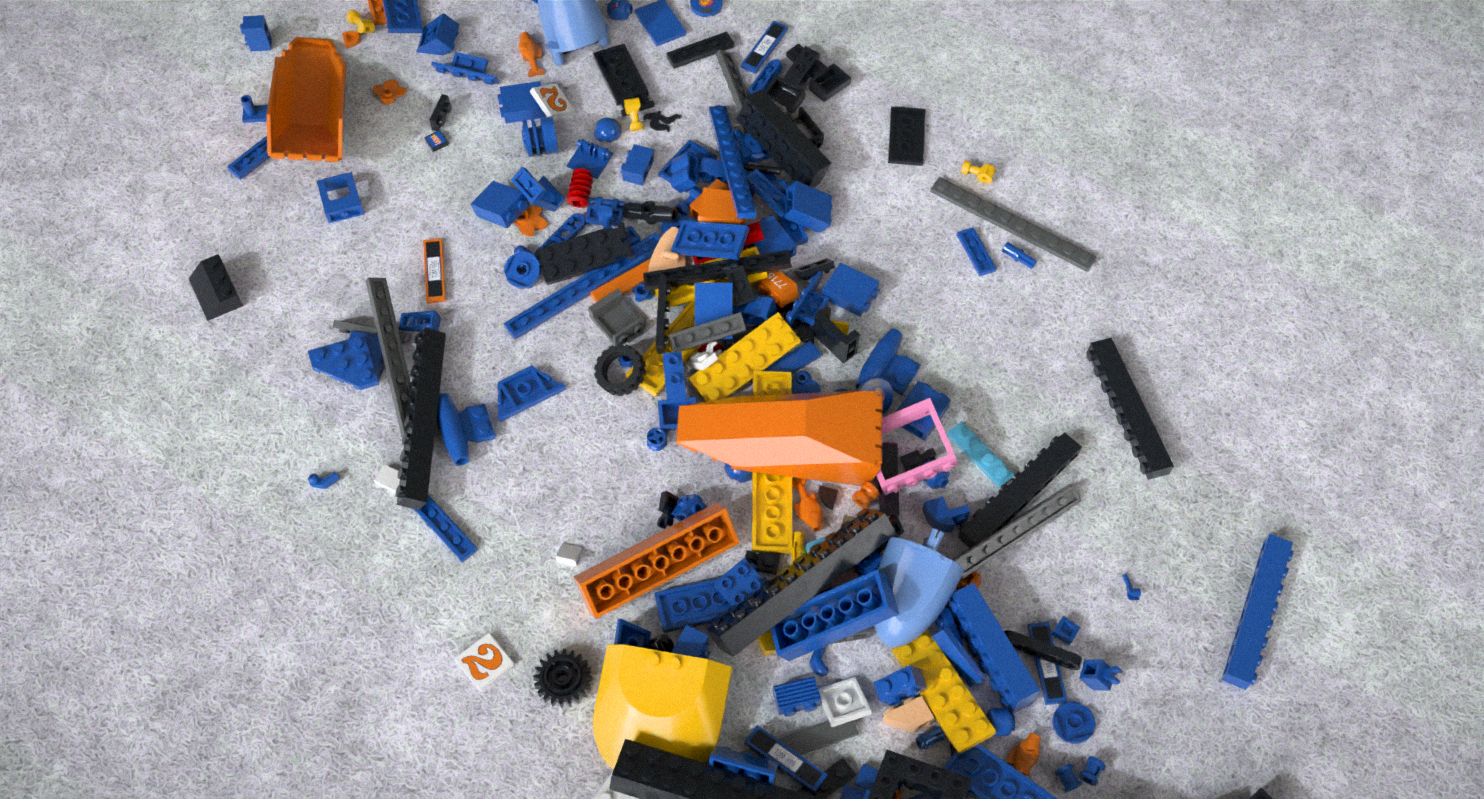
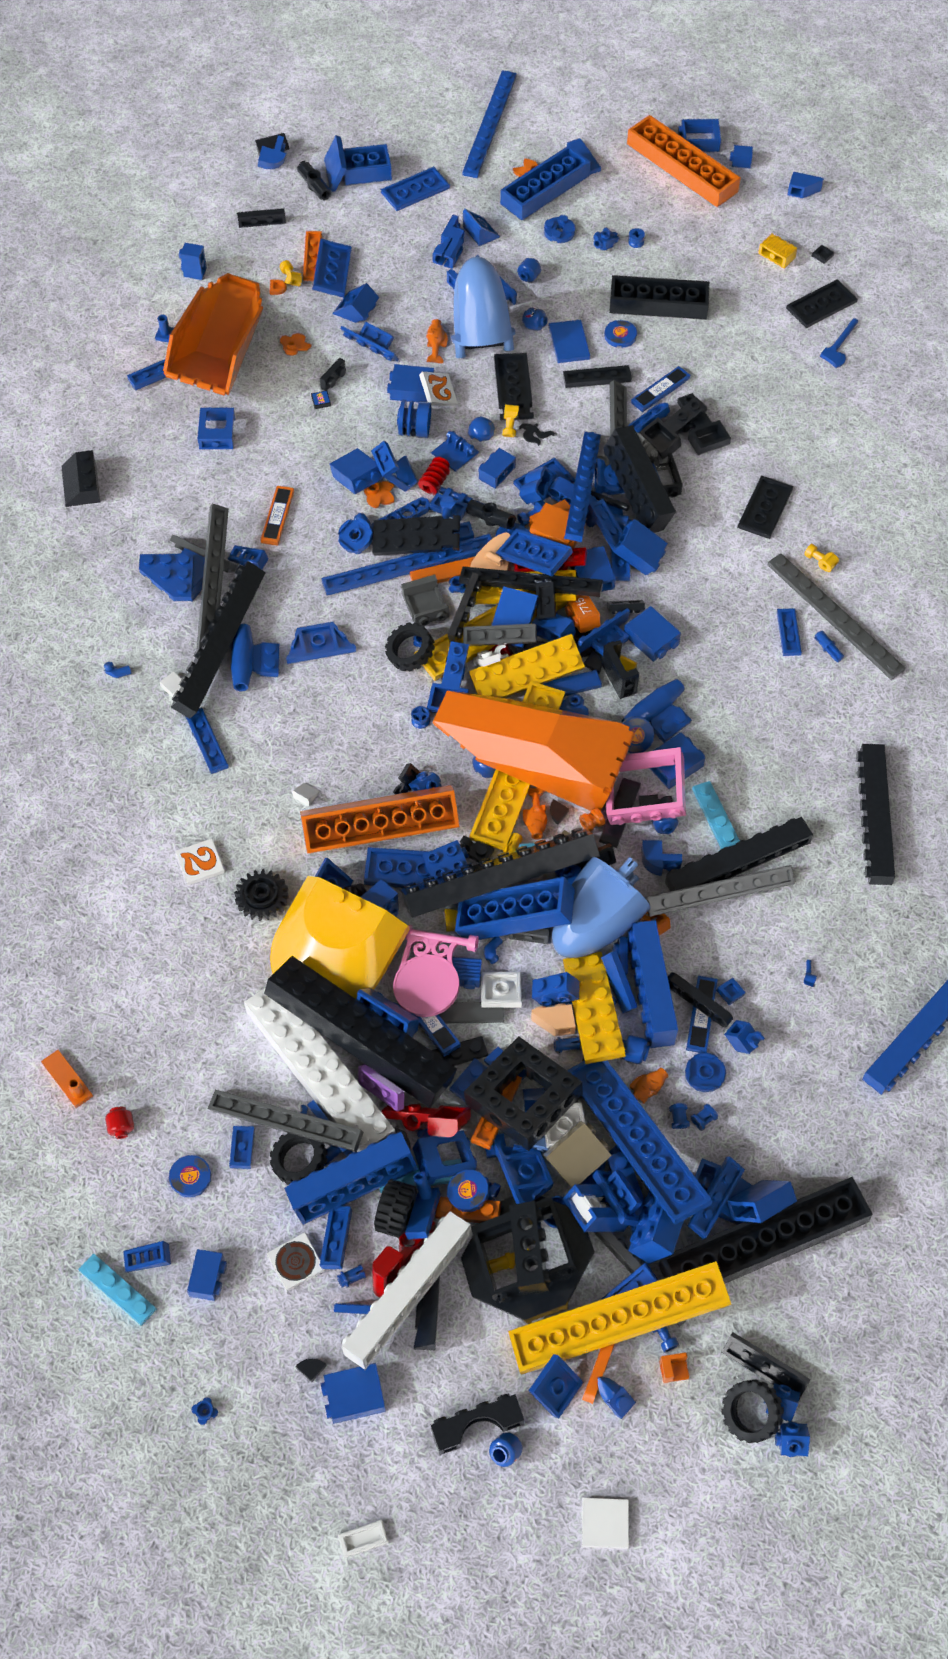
camera: 20 degrees right, 0 degrees up
(769, 719) = (428, 981): none -> bright pink piece

